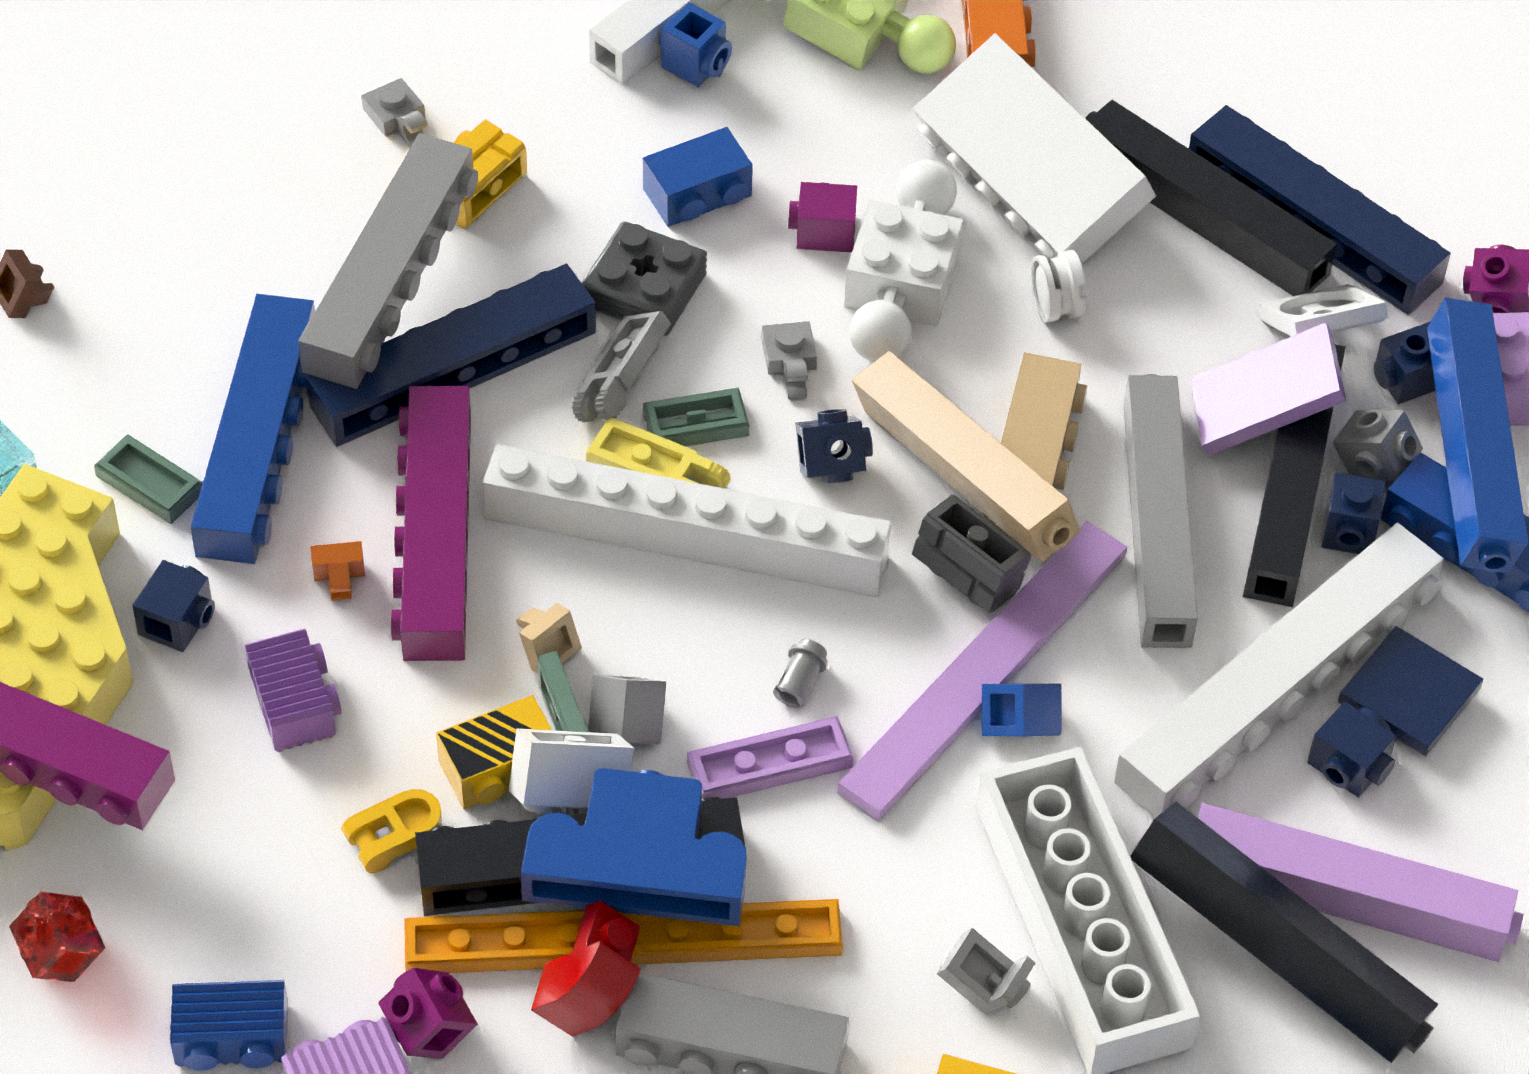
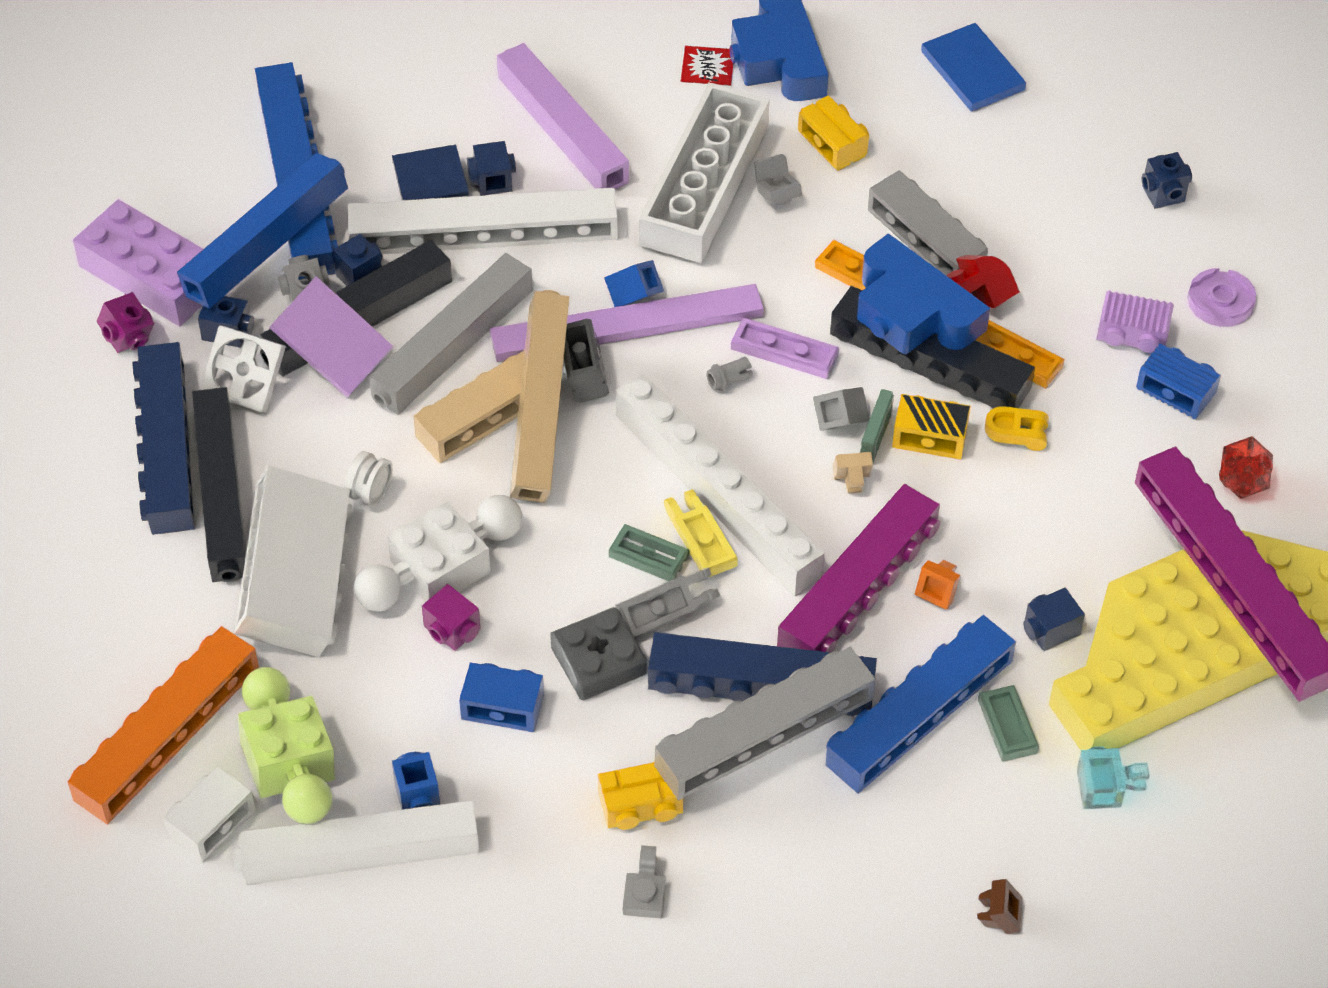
camera: 140 degrees left, 0 degrees up
(291, 689) = (1020, 529): medium lavender brick -> none
(427, 1012) = (1074, 318): magenta brick -> none
(559, 767) = (907, 374): white brick -> none
(790, 351) = (556, 557): light grey plate -> none
(819, 435) = (596, 468): dark blue brick -> none
(1285, 933) = (626, 103): black brick -> none

